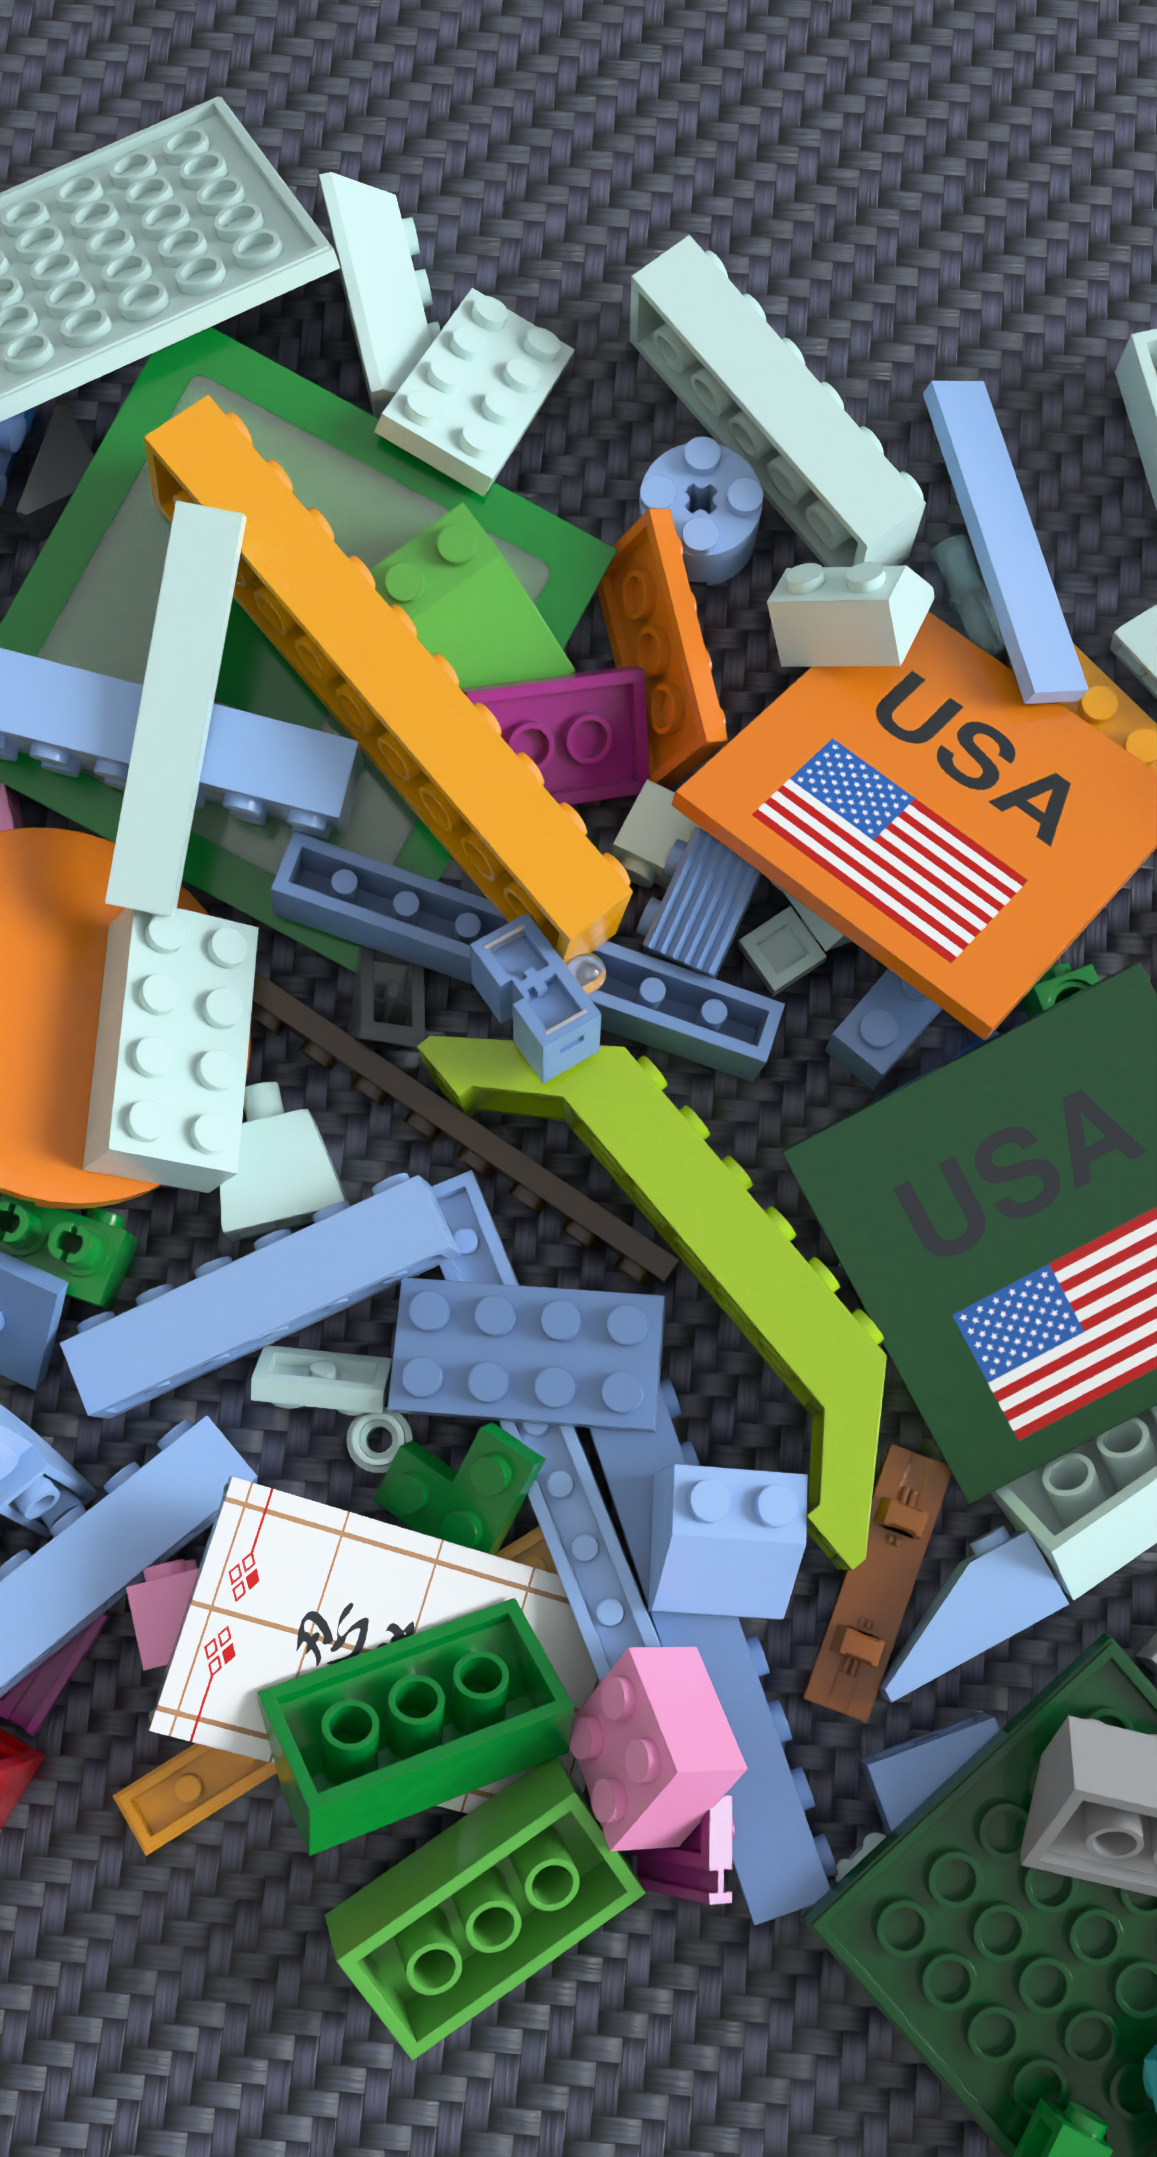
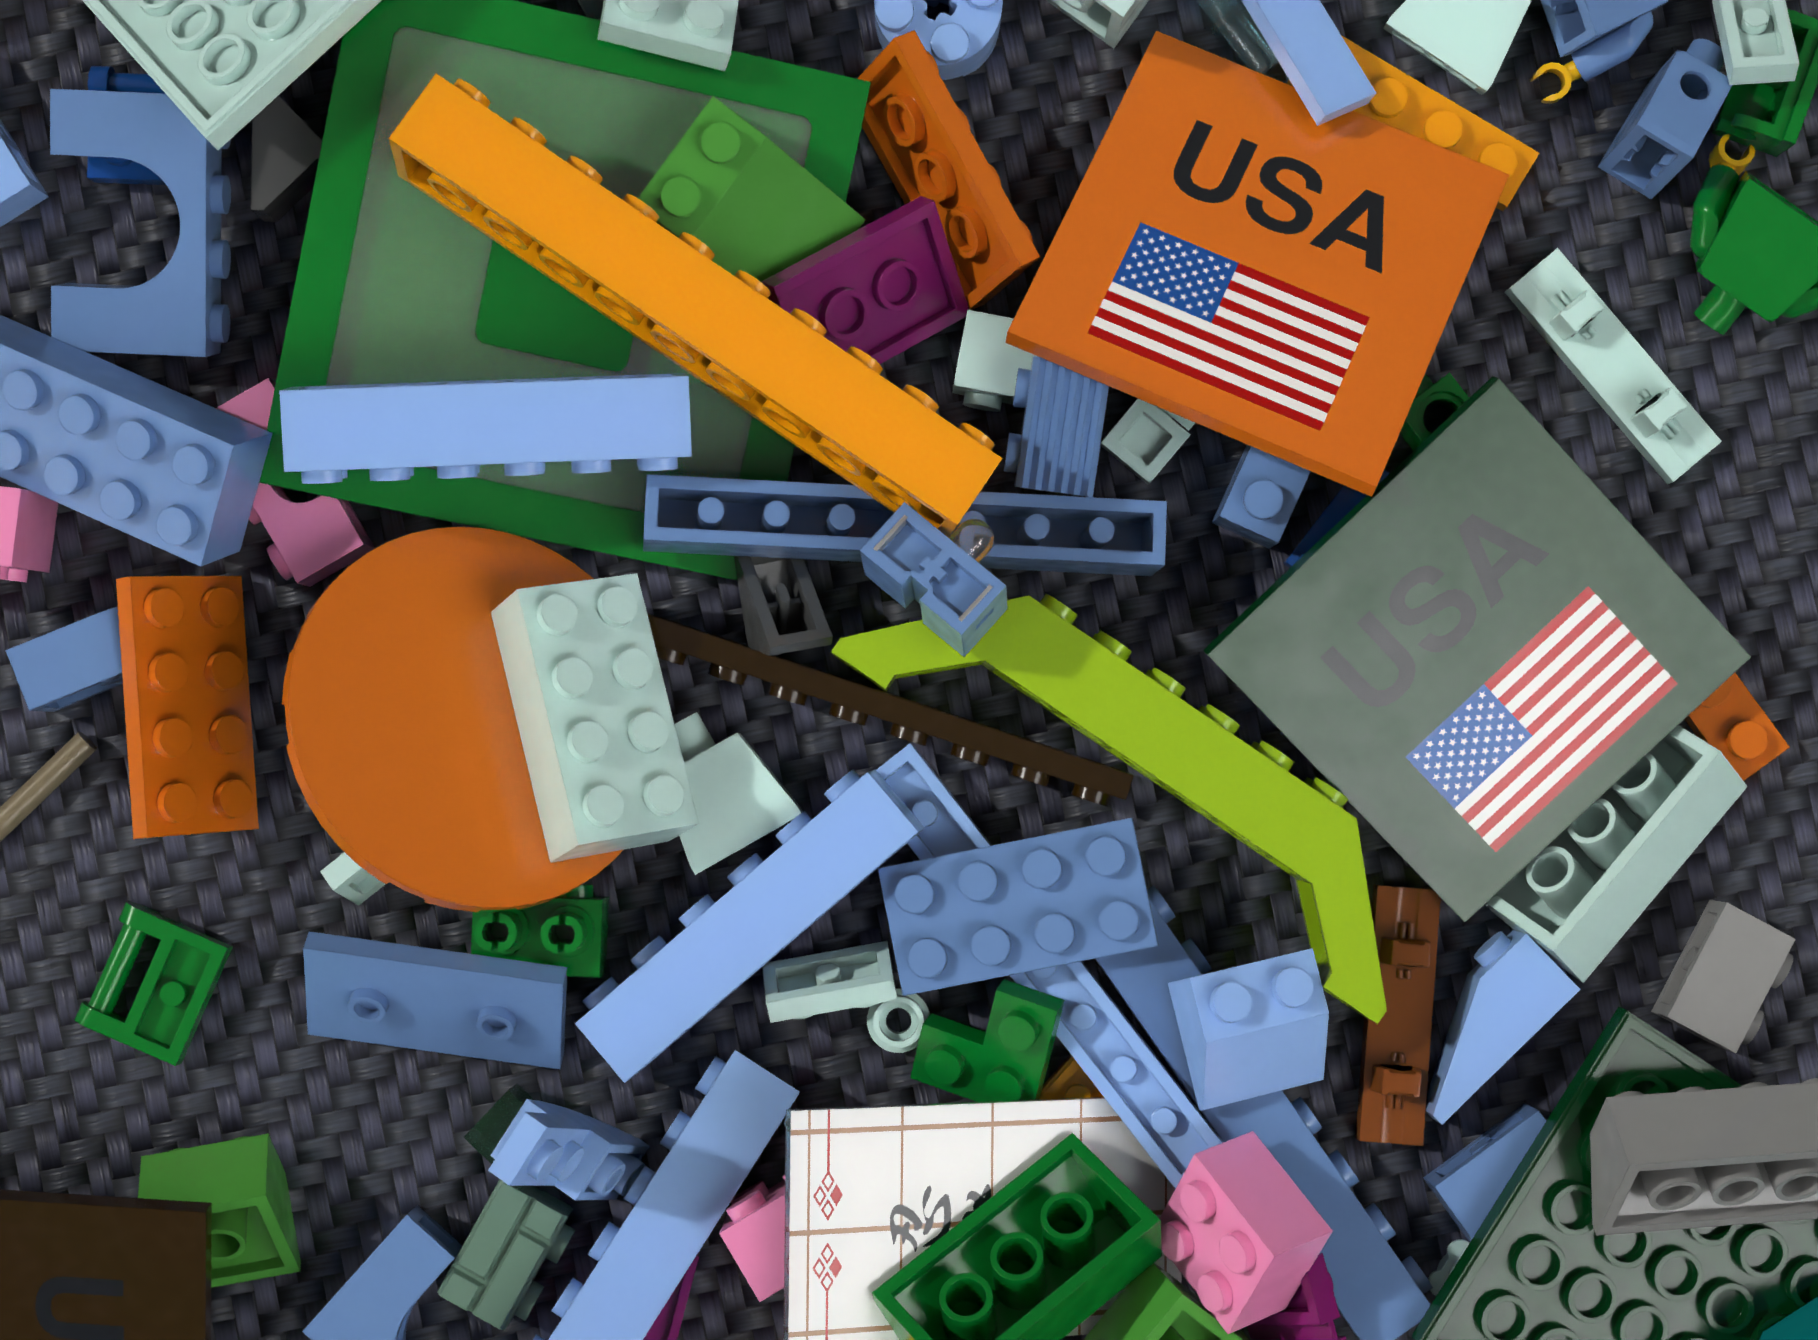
camera: 20 degrees left, 10 degrees up
(175, 708) = (505, 400): light aqua tile -> none
(847, 614) = (1120, 89): light aqua slope -> none

